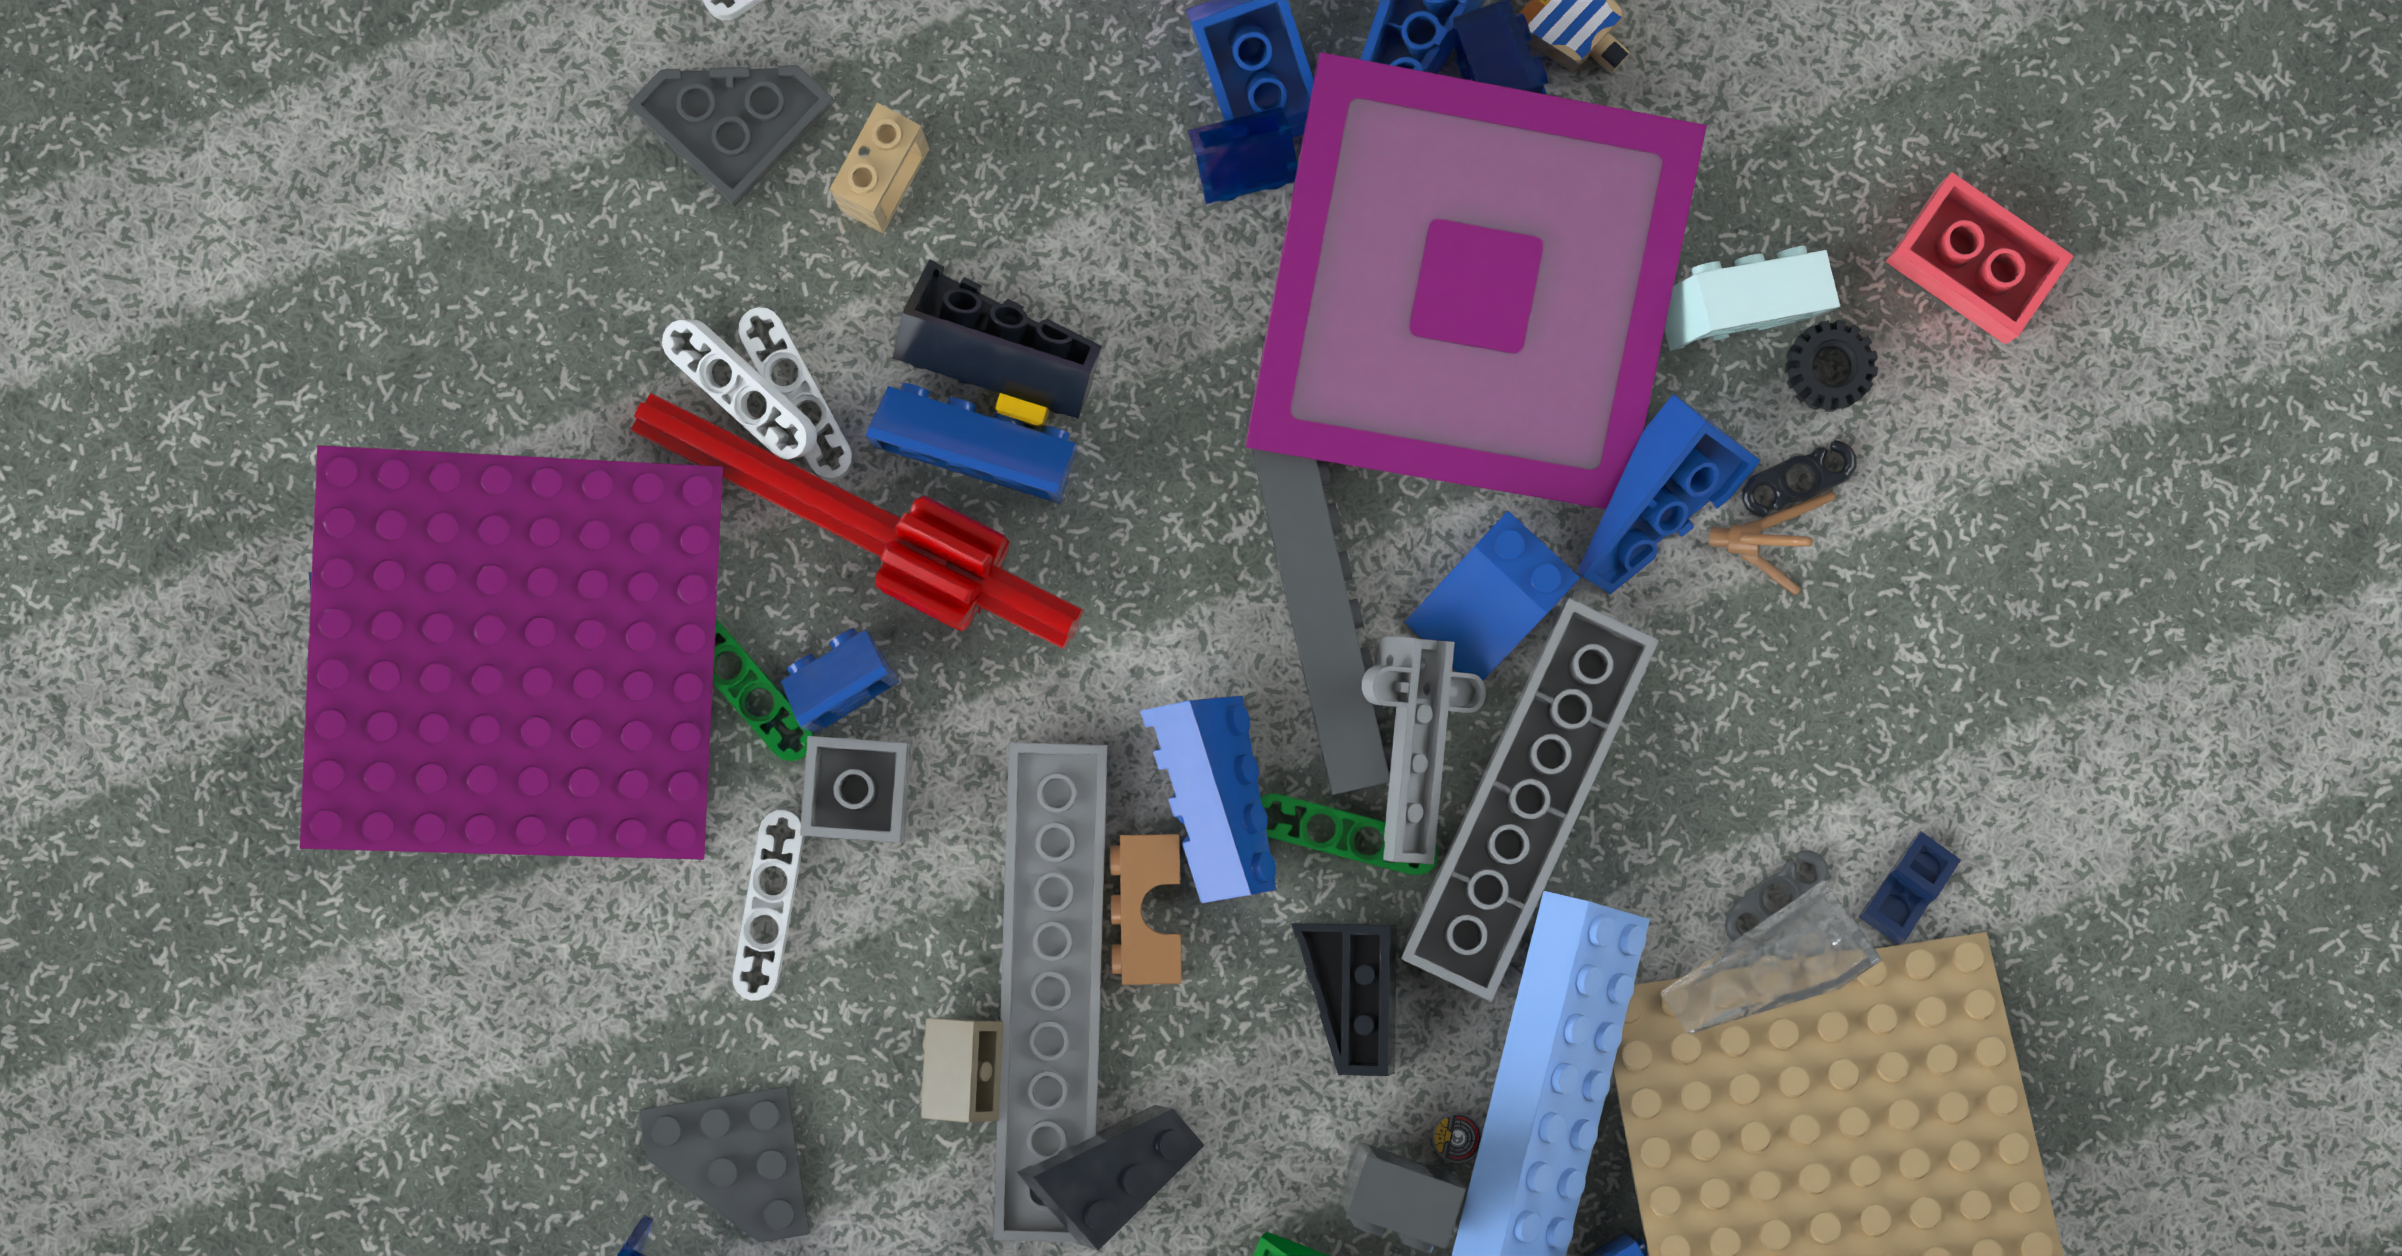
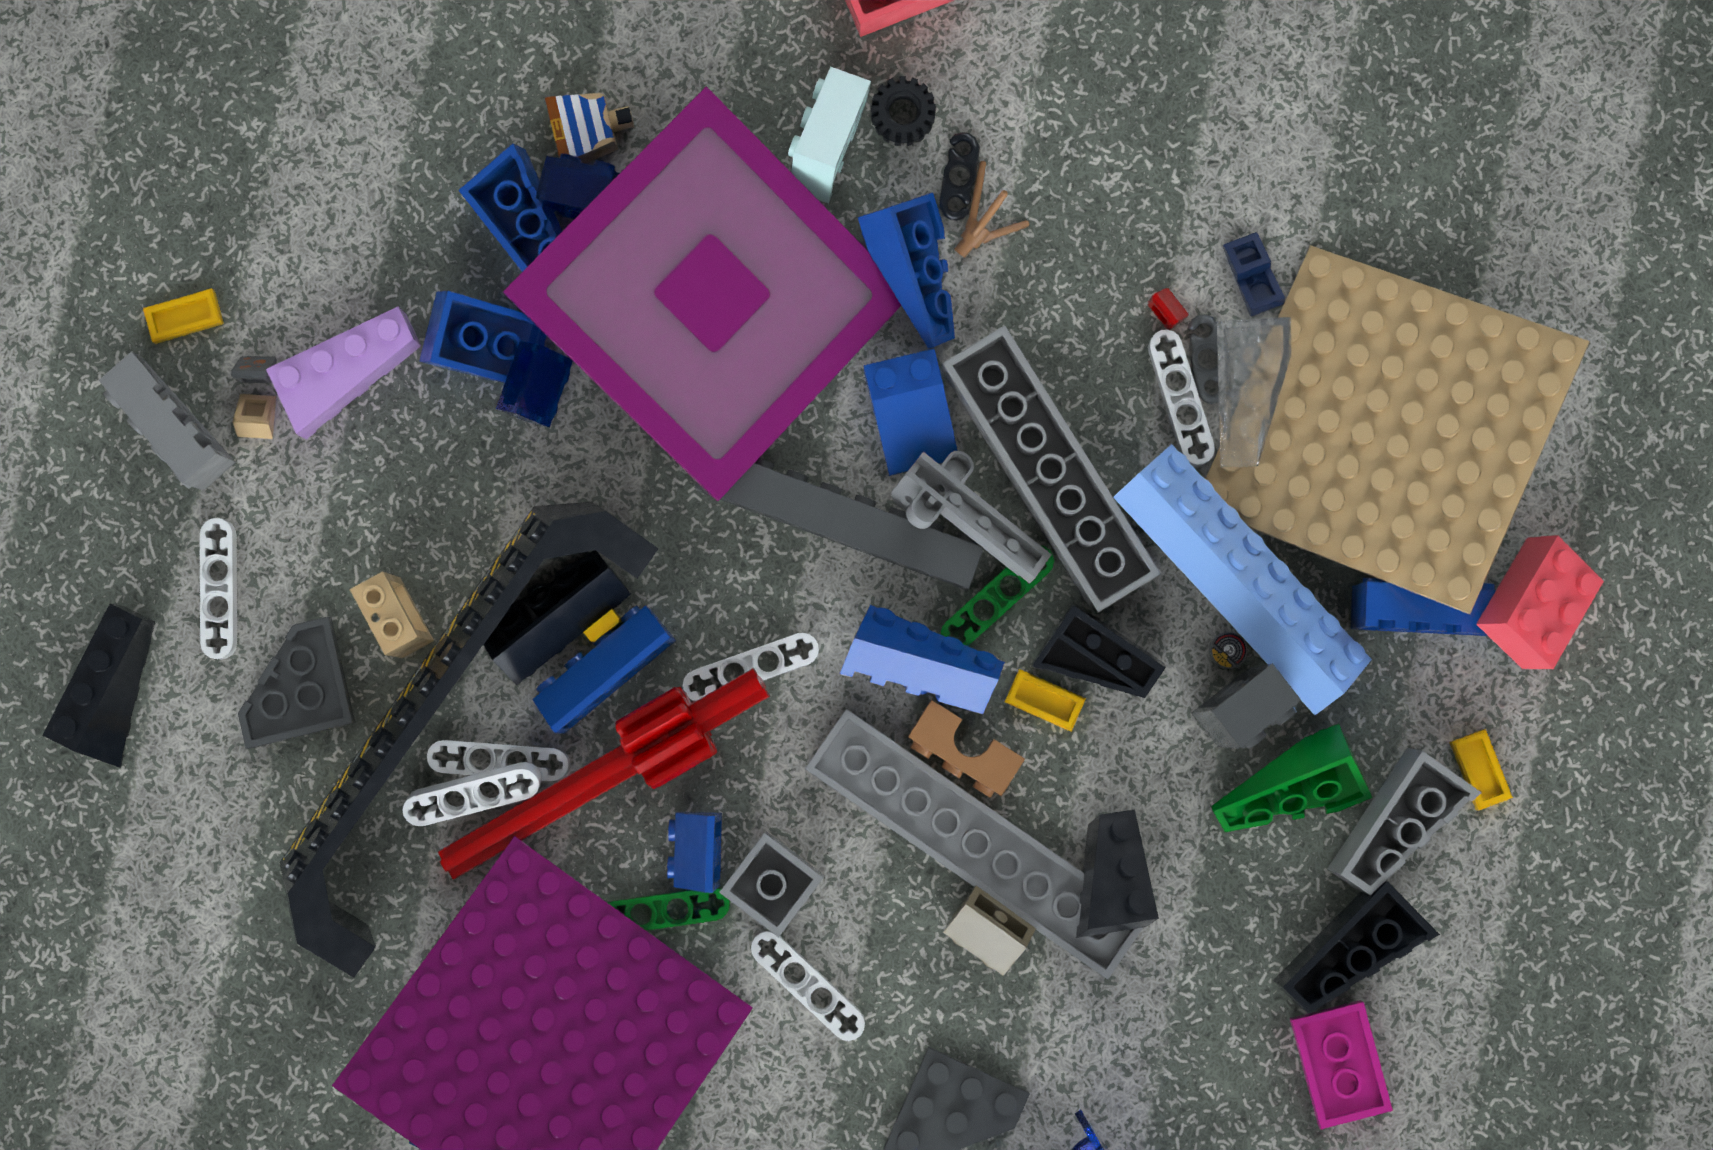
camera: 50 degrees left, 0 degrees up
(1080, 277) = (543, 534): none -> black arch
(1091, 600) = (750, 660): none -> white beam
(1264, 964) = (1045, 700): none -> yellow tile
(1715, 900) = (1186, 396): none -> white beam
(1804, 815) = (1167, 308): none -> red slope

